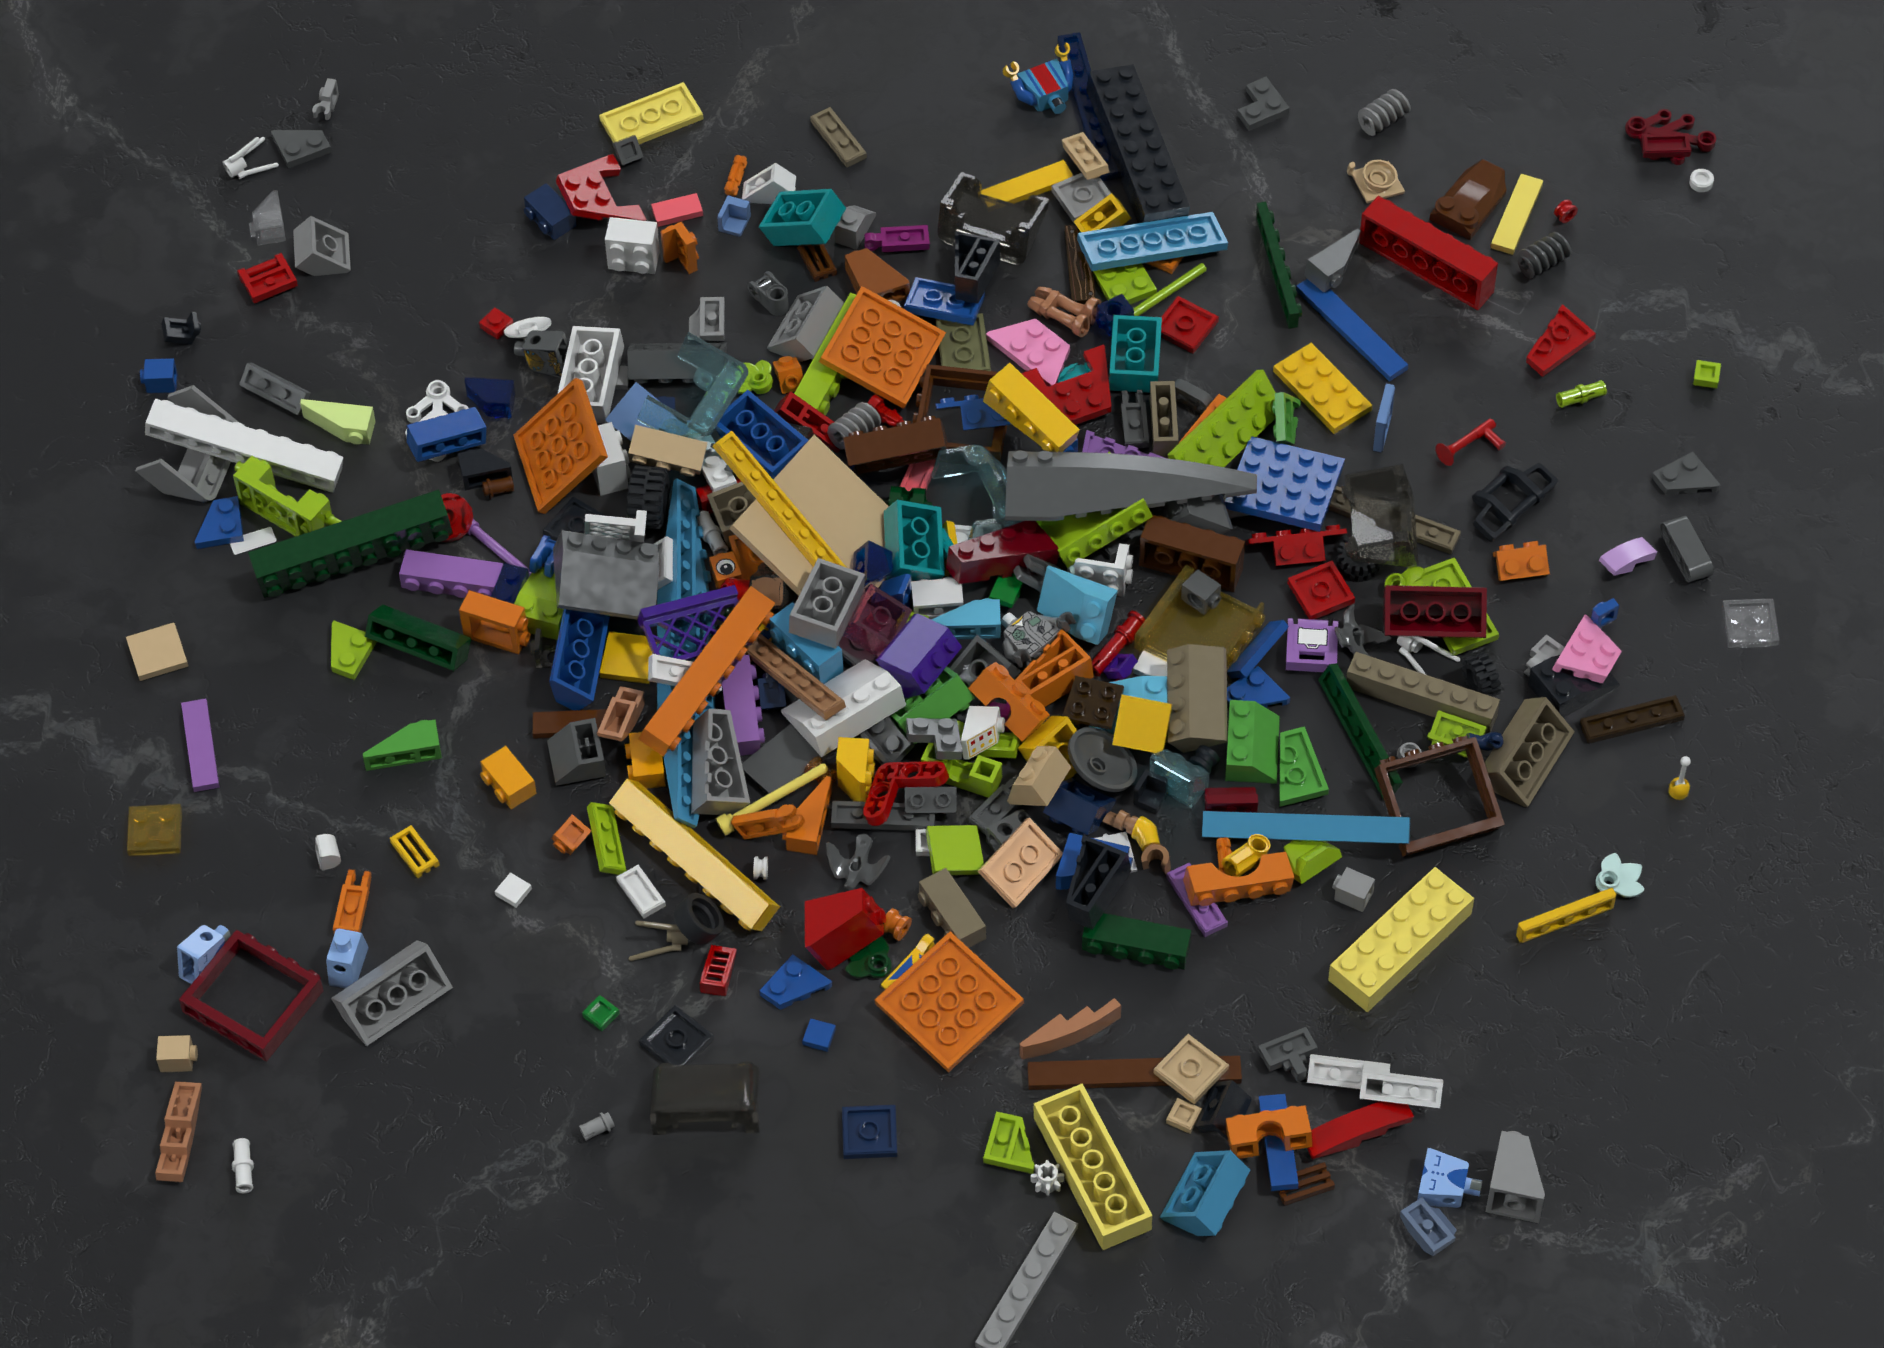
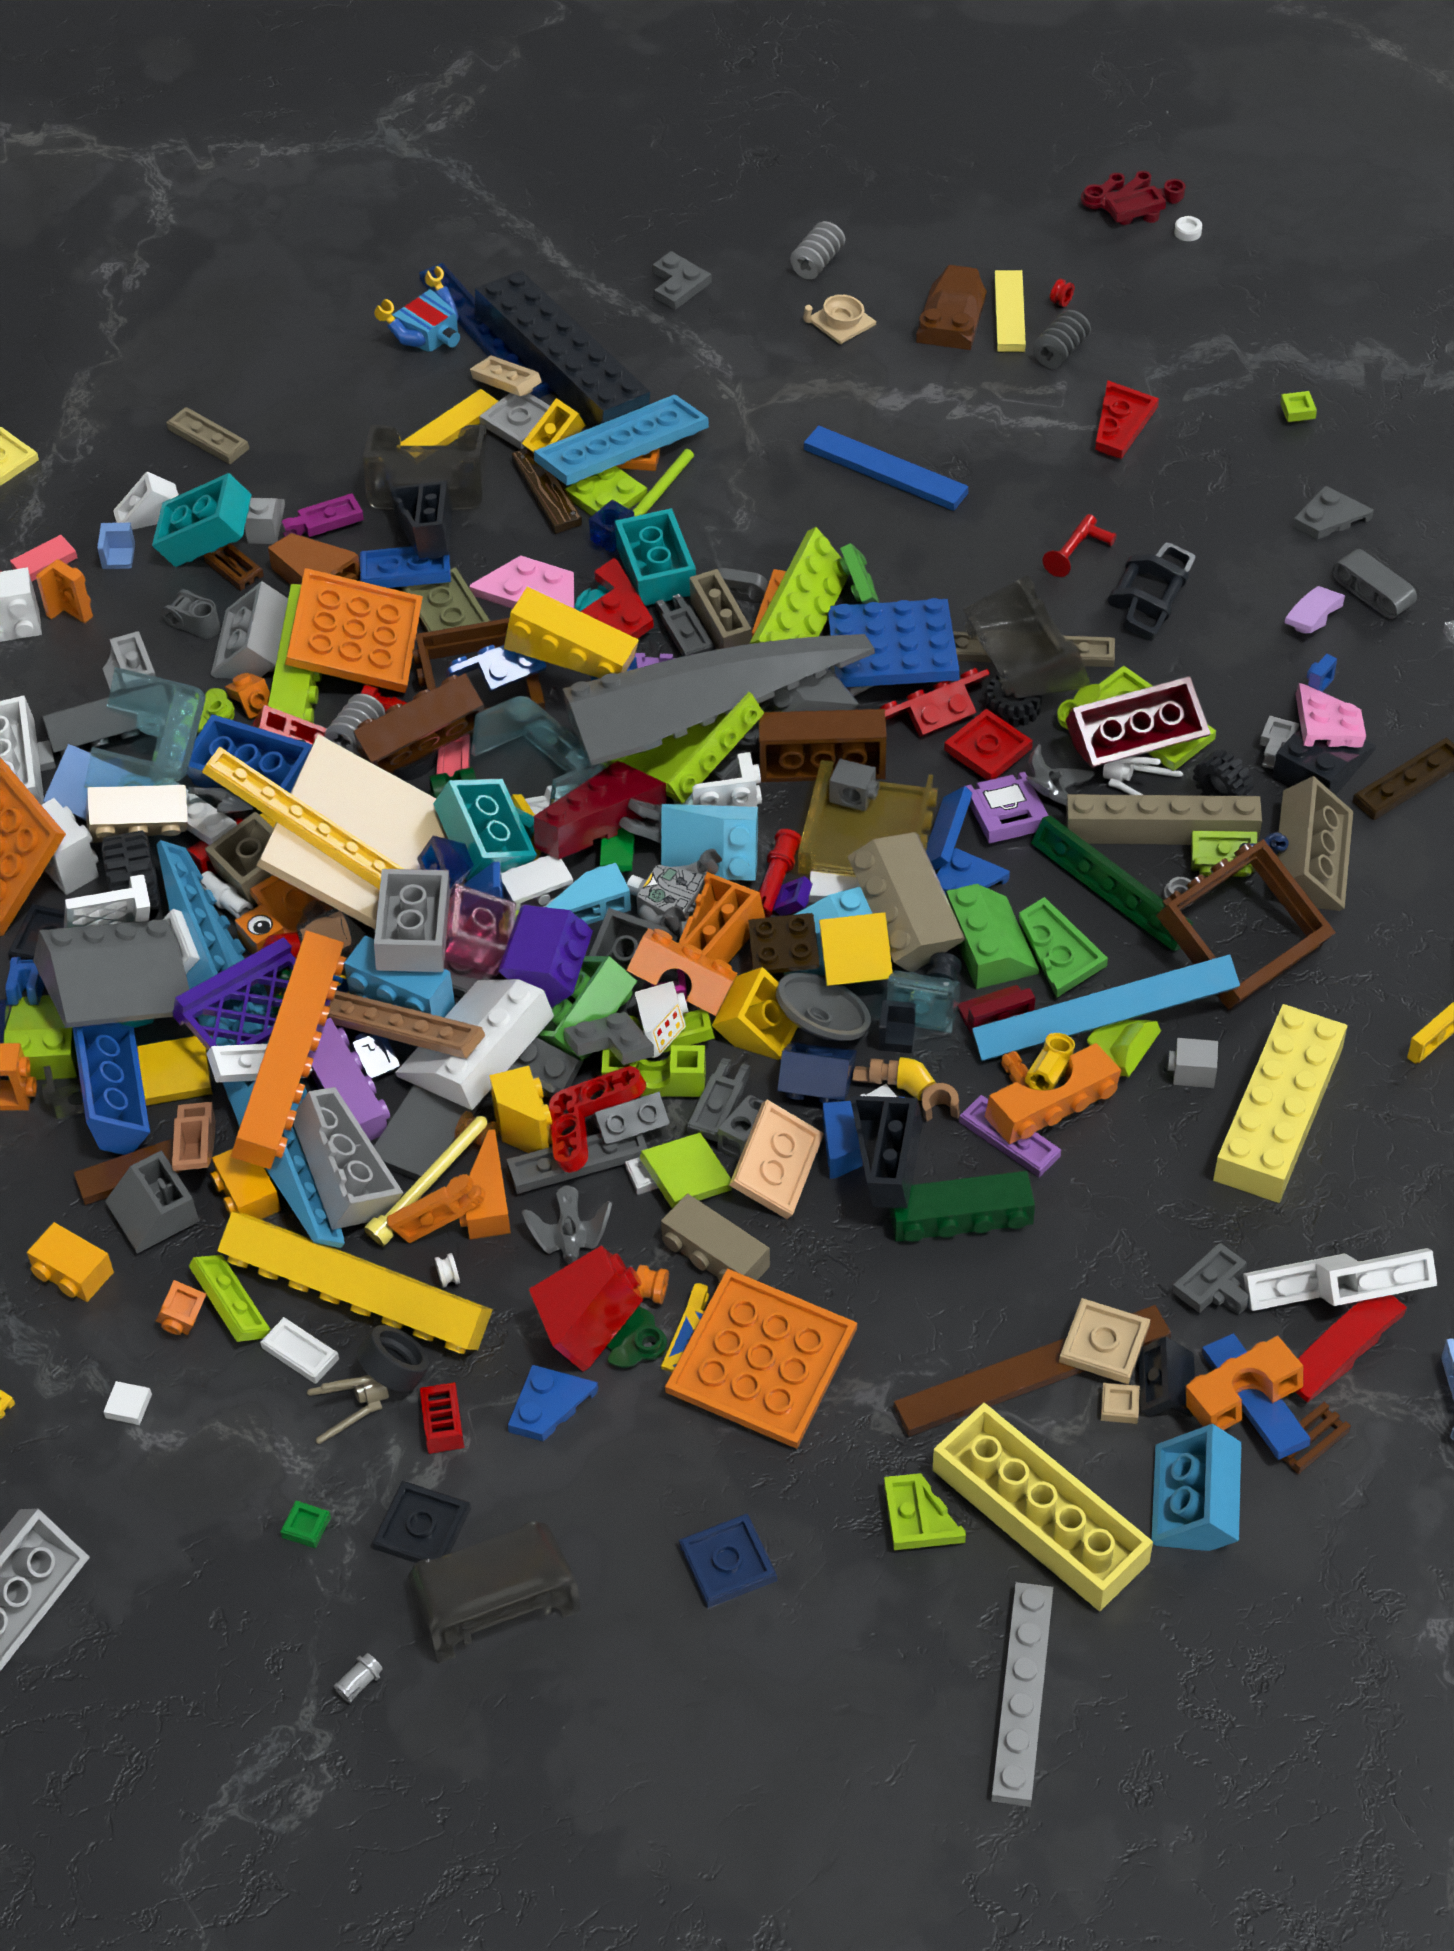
camera: 20 degrees left, 5 degrees down
(735, 175) = (101, 504): orange axle -> none
(819, 1035) = (608, 1456): blue tile -> none
(1039, 777) = (761, 1047): tan slope -> none
(1047, 1178) = (997, 1537): white gear -> none
(1048, 300) = (533, 535): nougat piece -> none
(1063, 1033) = (925, 1348): nougat slope -> none
(1187, 324) = (700, 514): red tile -> none
(1276, 259) = (773, 427): dark green plate -> none
(1322, 388) = (884, 537): yellow plate -> none
(1329, 265) = (833, 409): slope -> none
(1384, 418) = (973, 542): medium blue tile -> none
(1428, 252) = (937, 367): red brick -> none
(1521, 562) = (1200, 649): orange bracket -> none
(1581, 393) = (1173, 463): lime pin -> none

